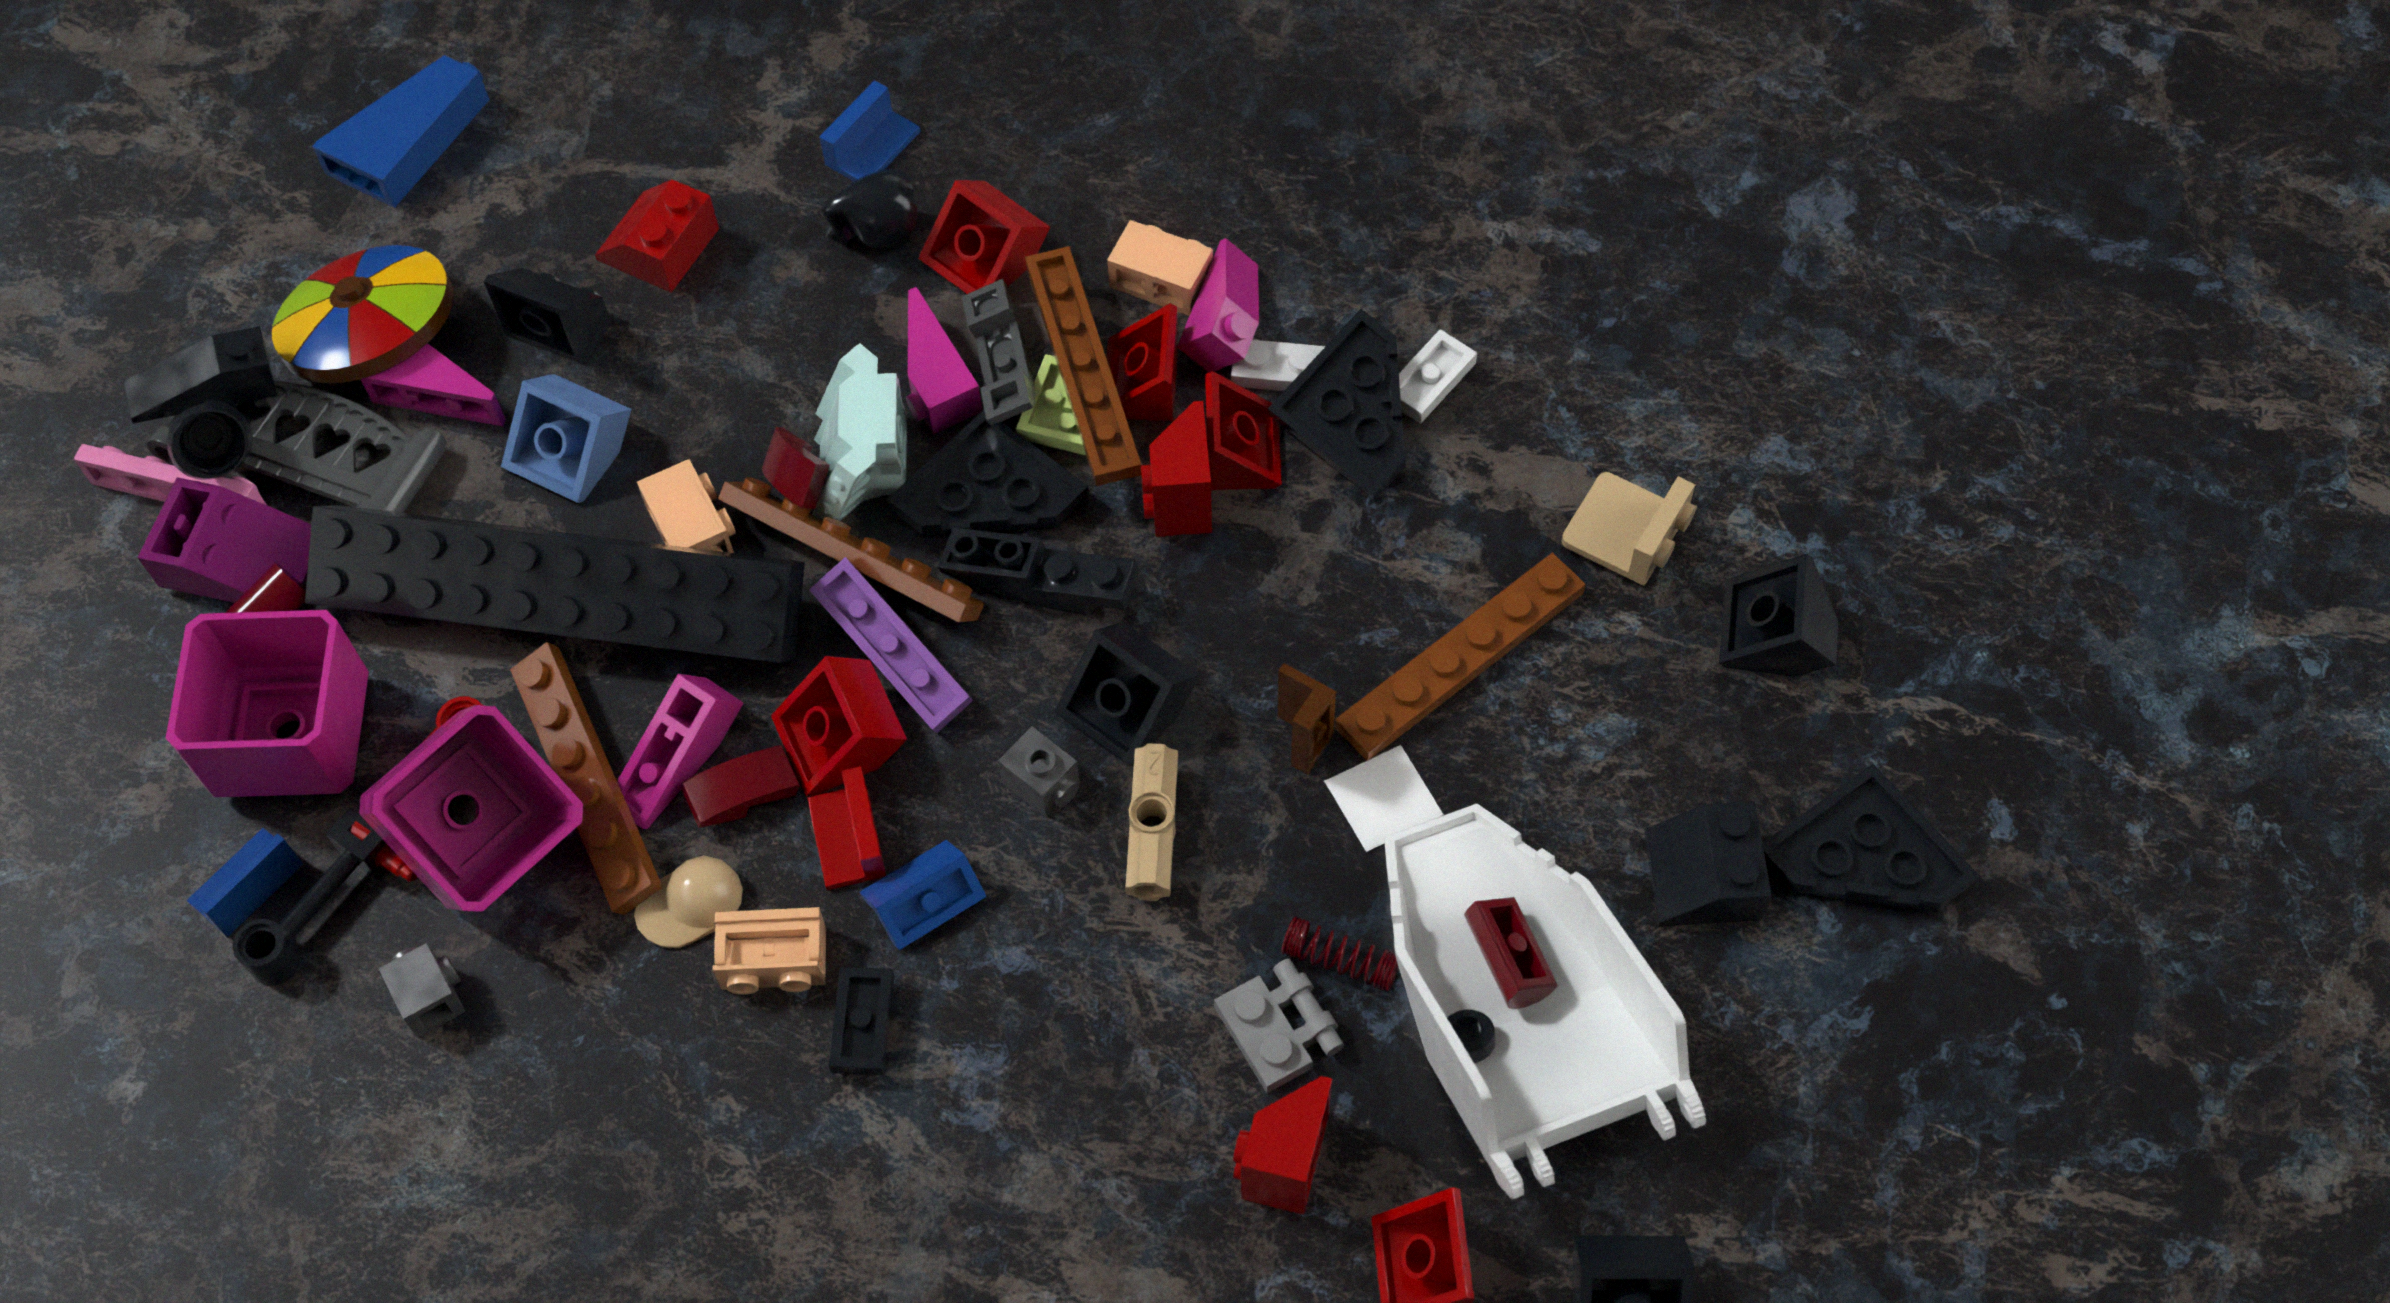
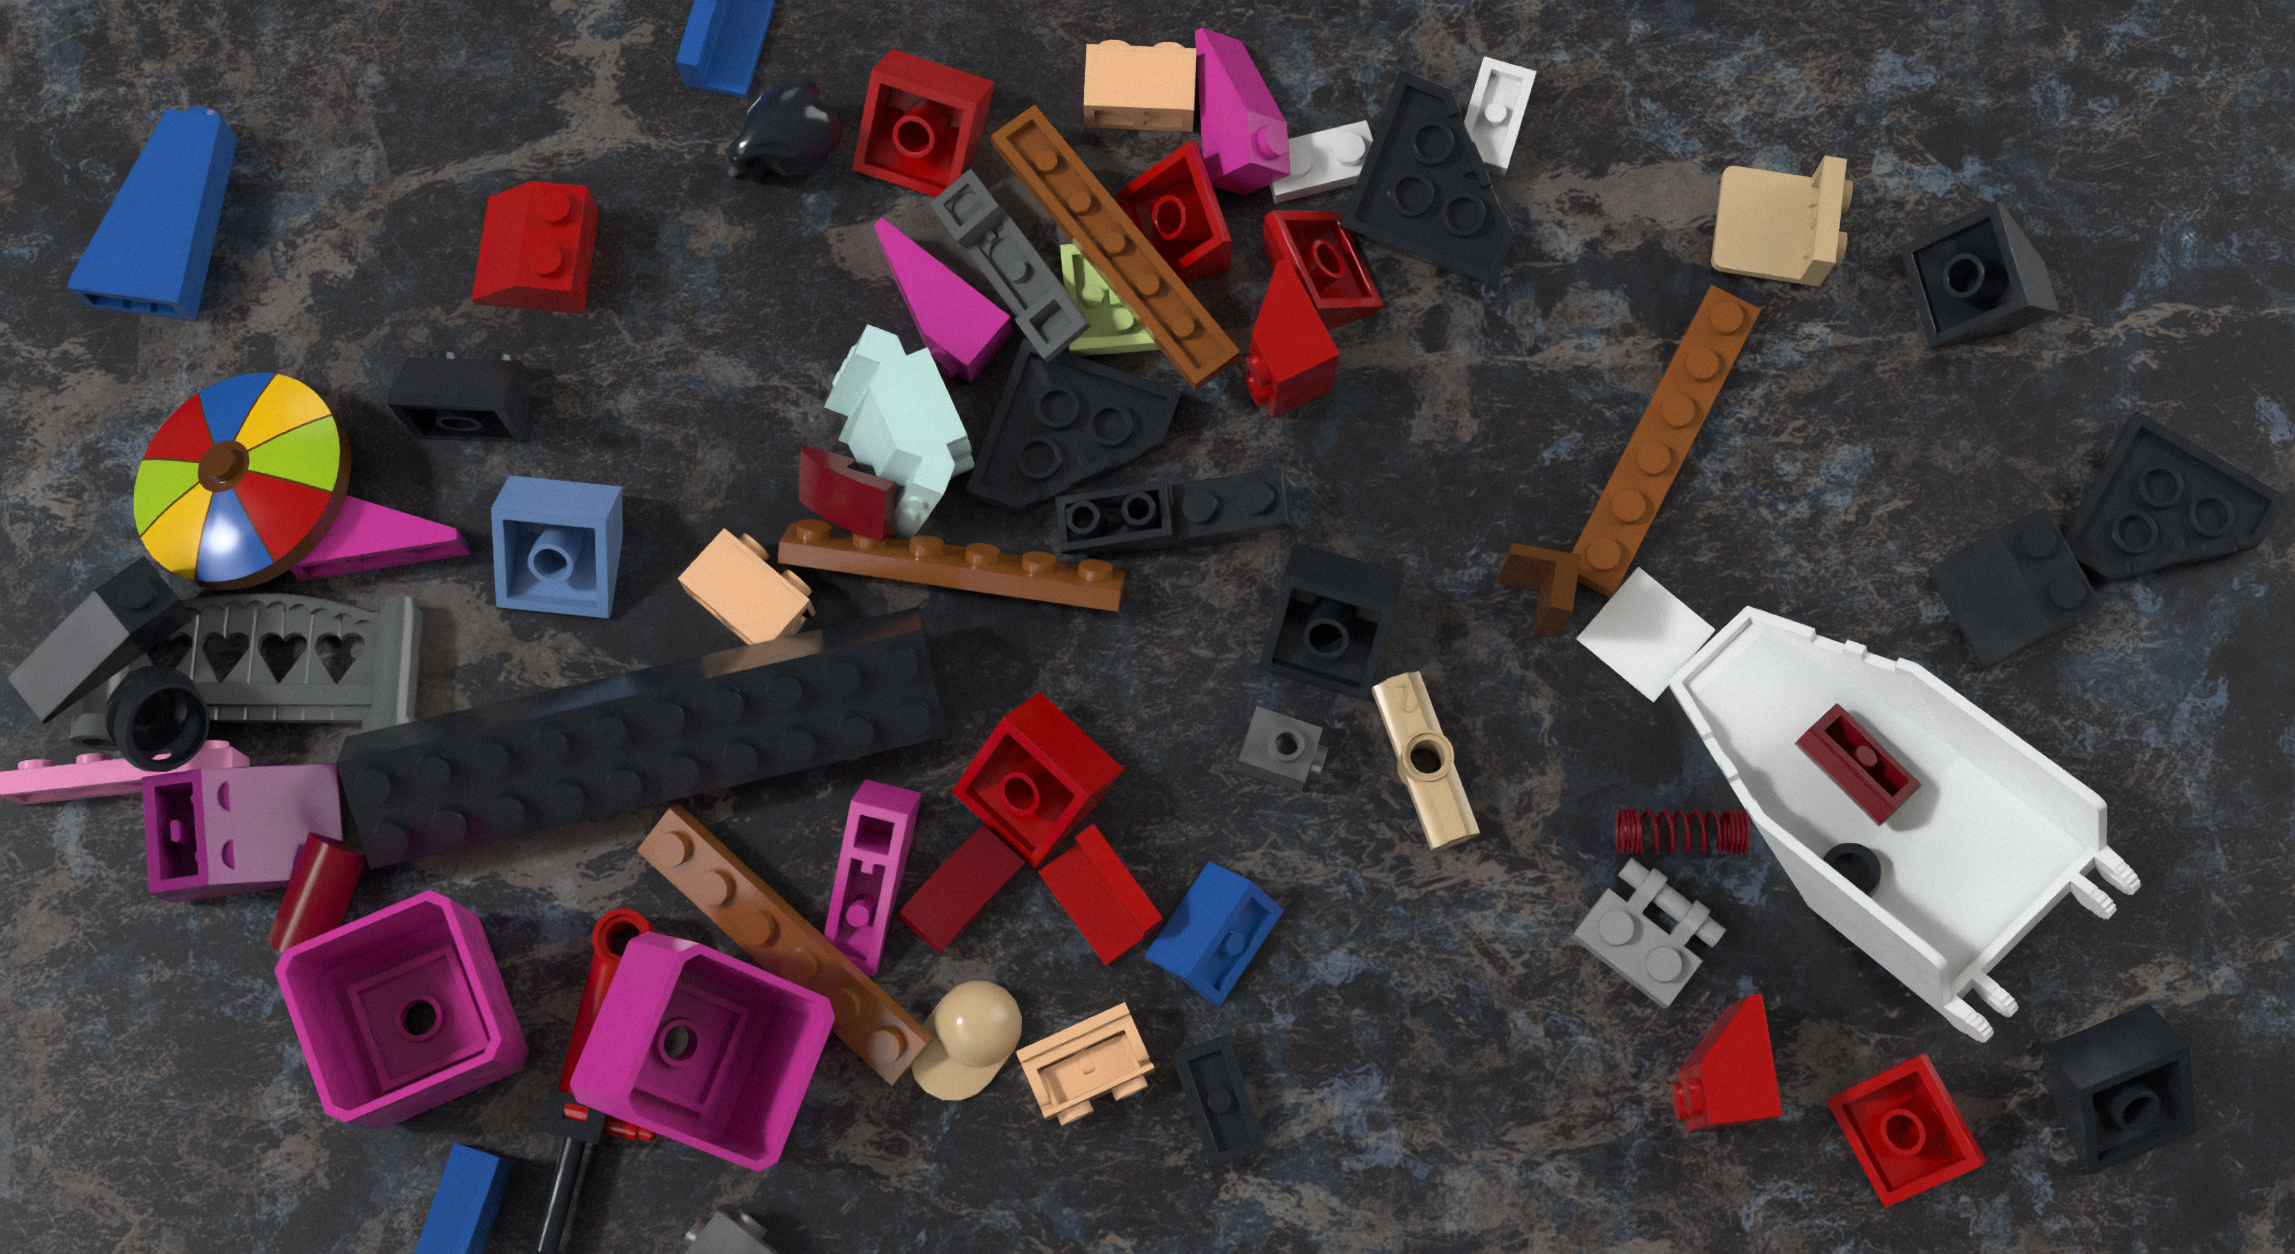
camera: 25 degrees left, 15 degrees up
(891, 645) = (1052, 664): medium lavender plate -> none

